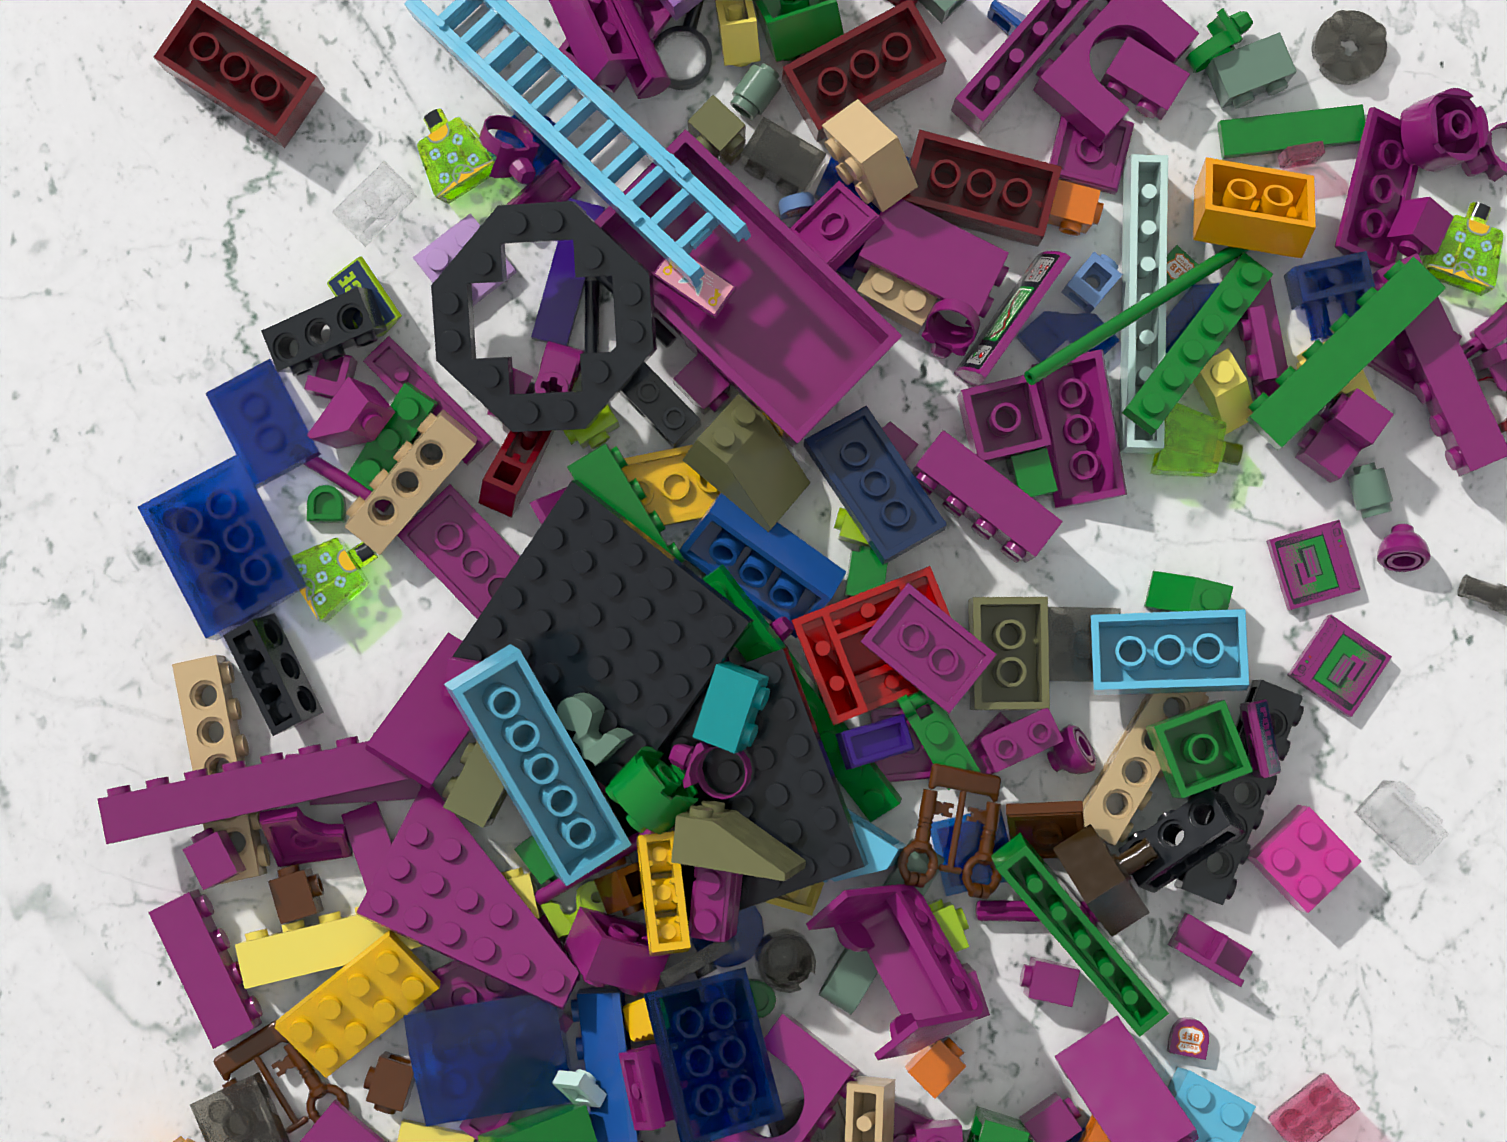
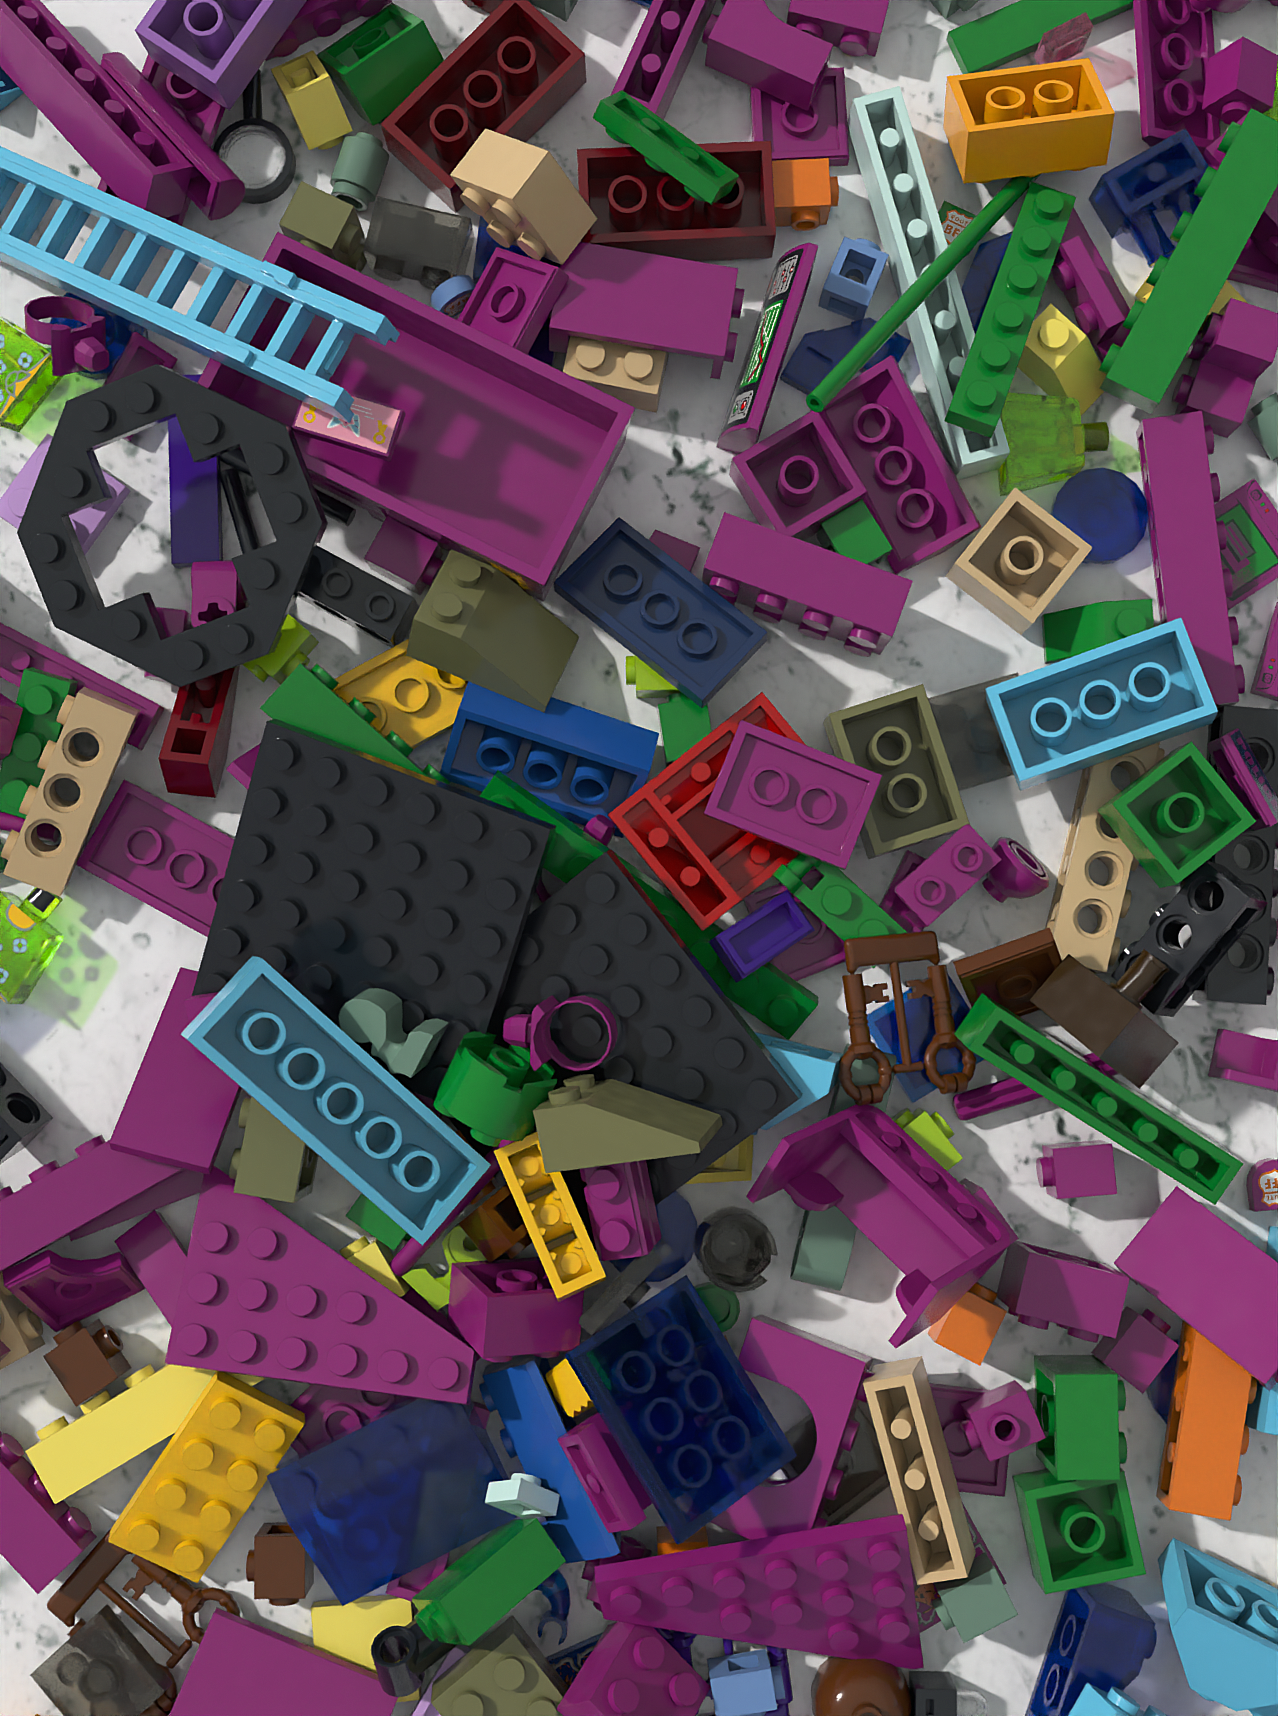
camera: 10 degrees left, 0 degrees up
(732, 707) = (563, 947): teal brick -> none
(947, 336) = (693, 401): magenta piece -> none
(983, 150) = (665, 147): none -> green plate
(1010, 1062) = (1062, 1289): none -> magenta brick
(1146, 528) = (1018, 561): none -> tan brick
(1217, 511) = (1104, 512): none -> clear blue tile
(1271, 559) = (1188, 544): none -> magenta brick

